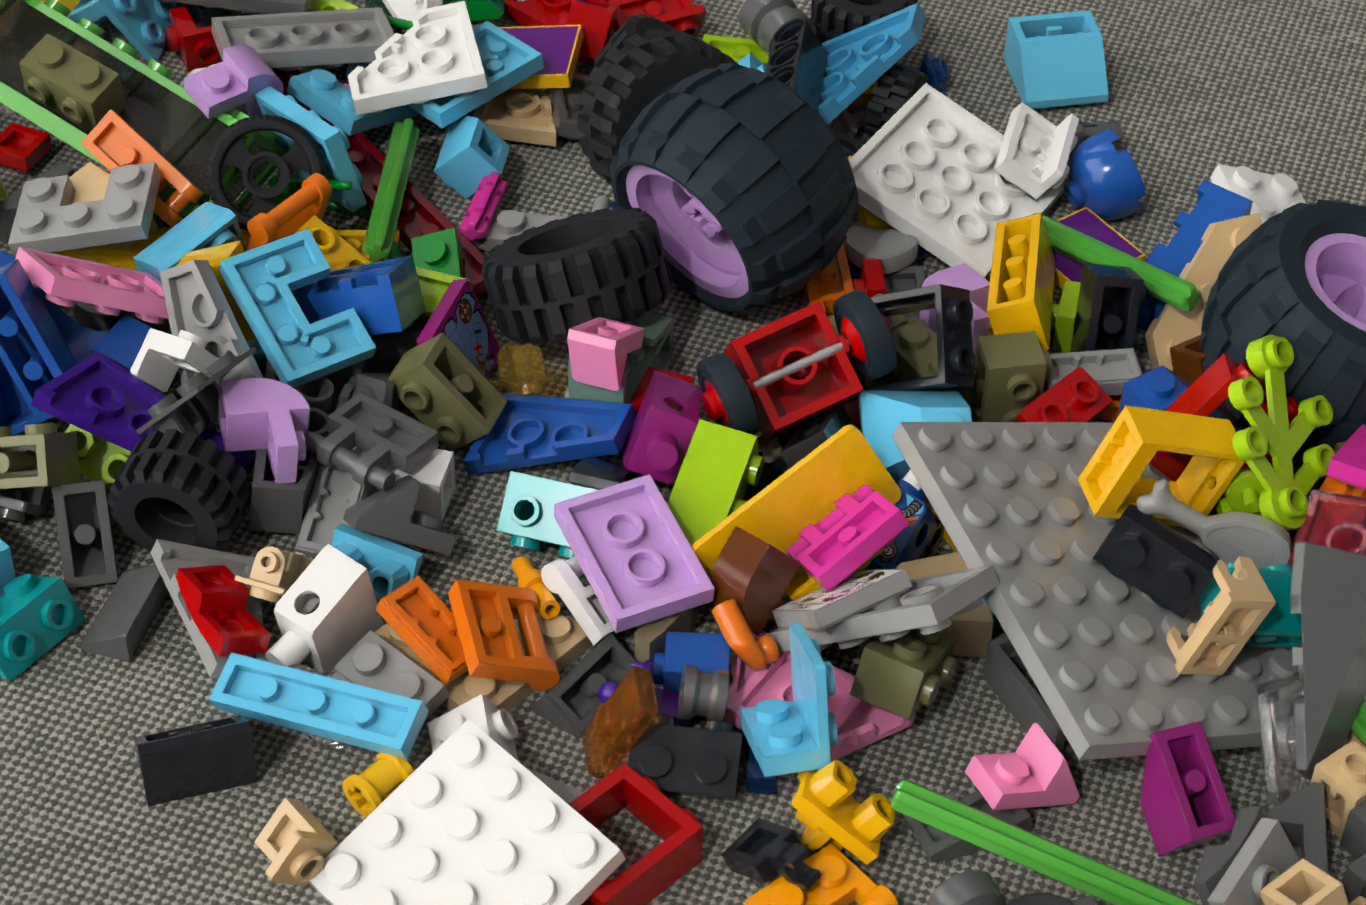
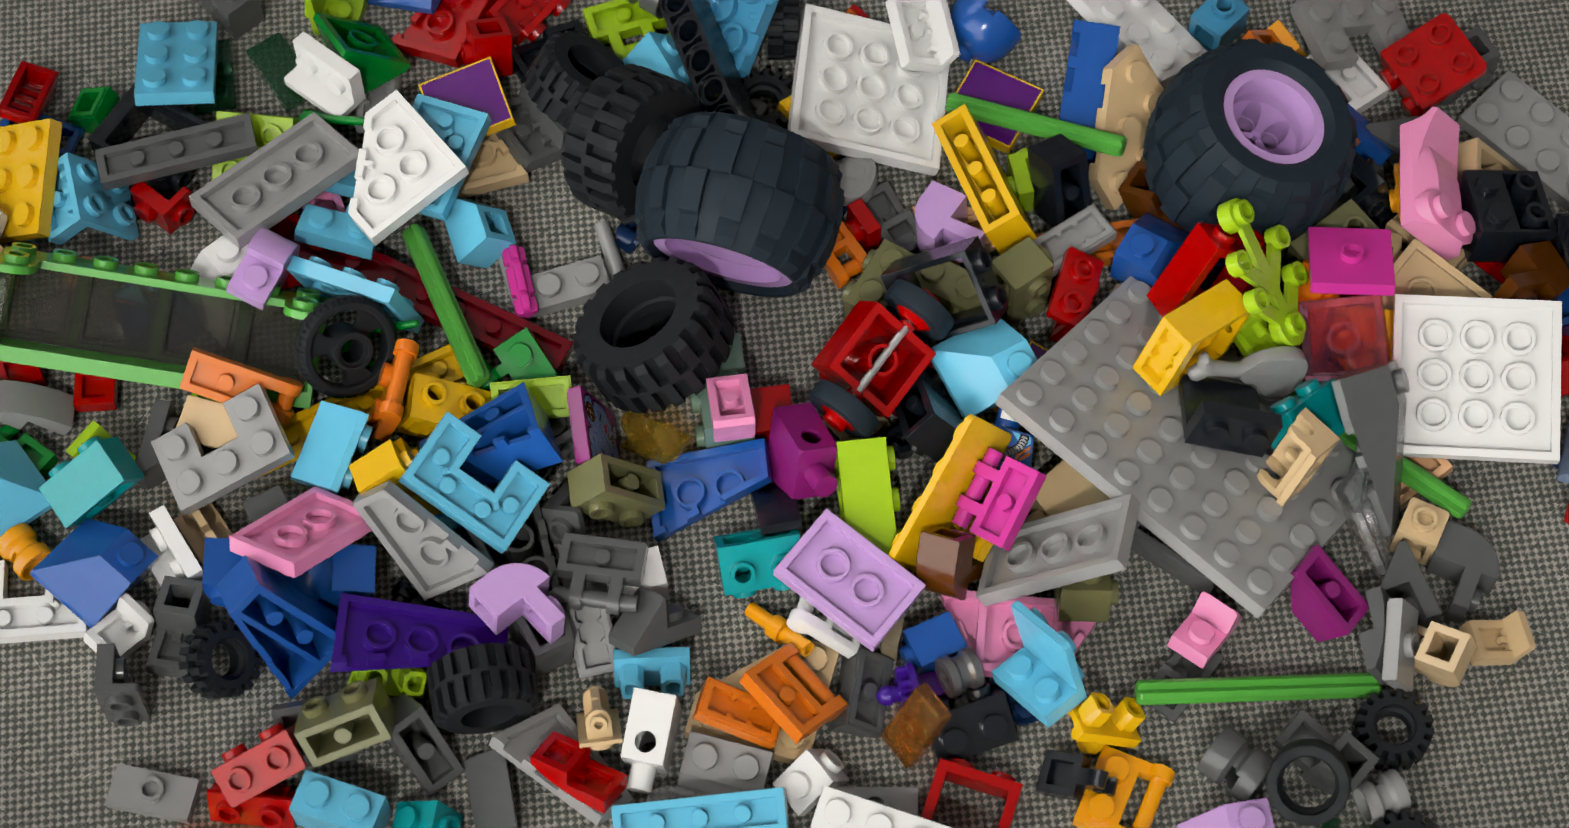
camera: 25 degrees left, 20 degrees up
(71, 82) = (129, 330): olive brick -> none
(165, 353) = (412, 564): white bracket -> none
(199, 400) = (452, 604): dark grey hinge -> none
(740, 638) = (959, 612): orange arm -> none
(858, 593) = (1028, 560): light grey tile -> none

